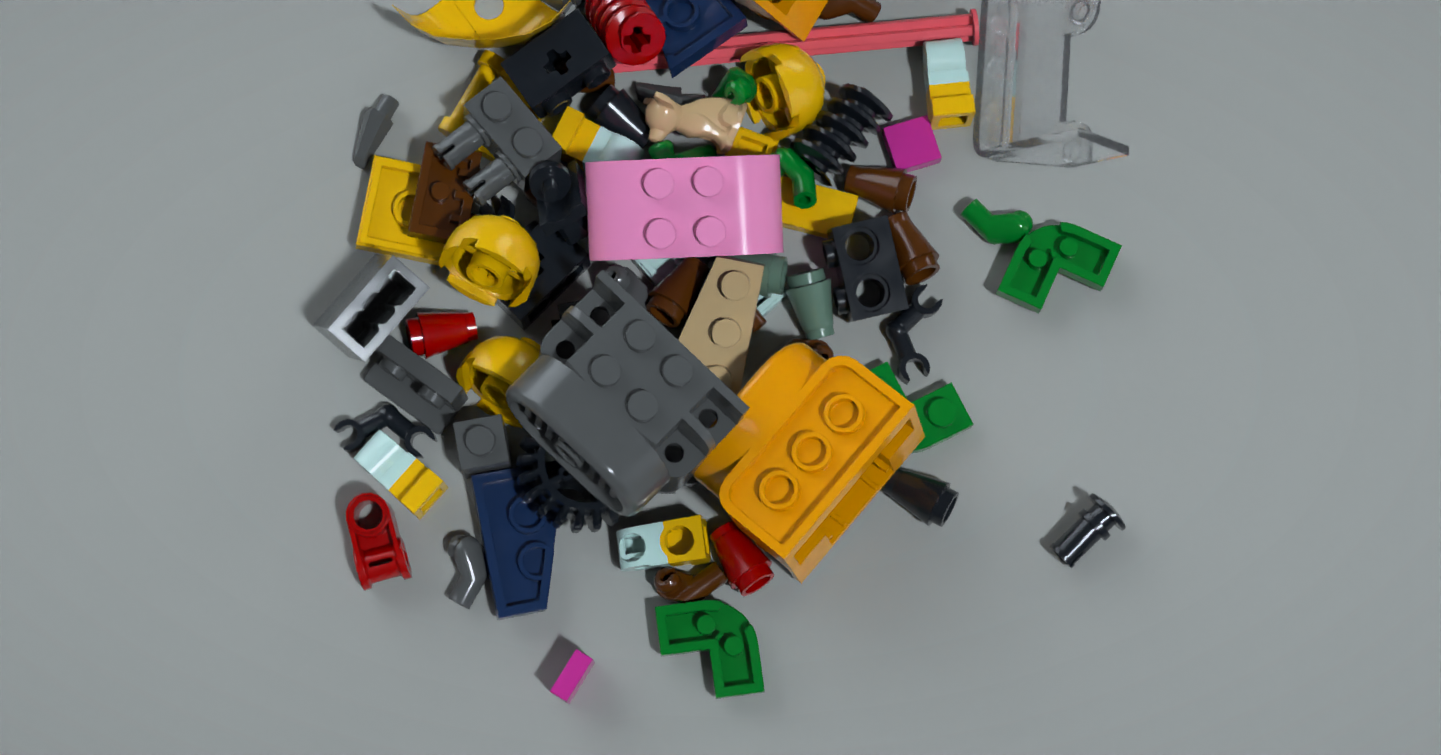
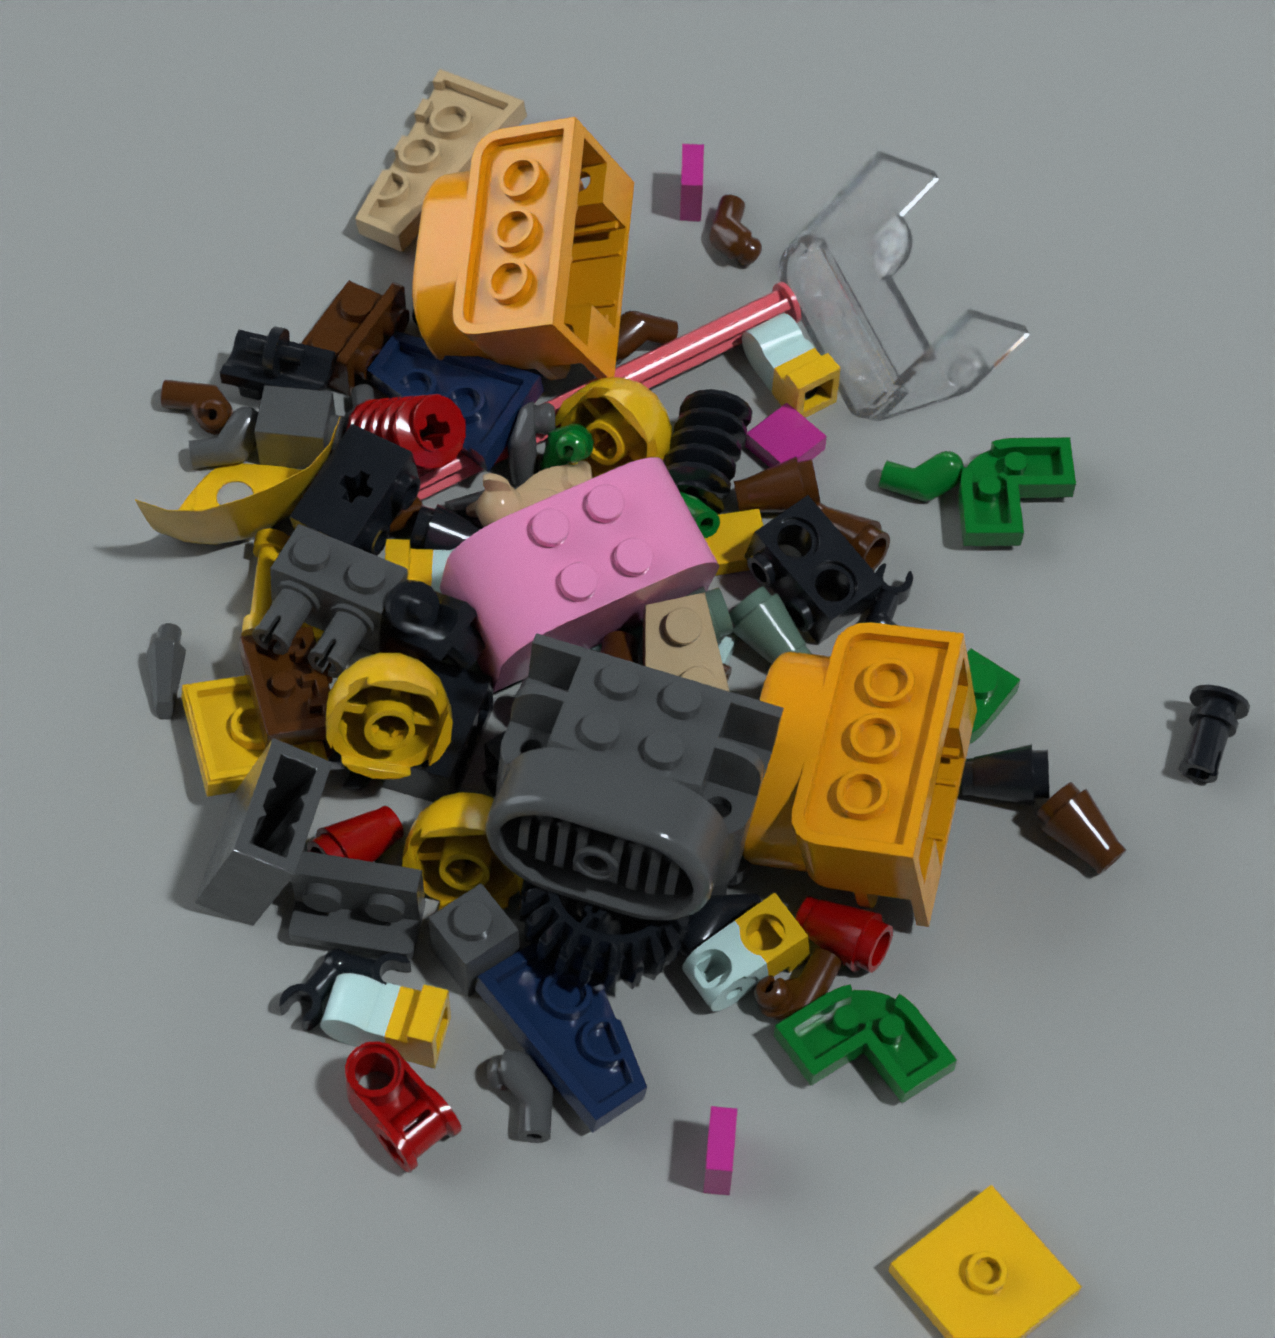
camera: 25 degrees left, 20 degrees down
(663, 505) = (715, 916): none -> black arm
(707, 67) = (522, 442): none -> dark grey arm
(950, 559) = (1080, 827): none -> reddish brown cone

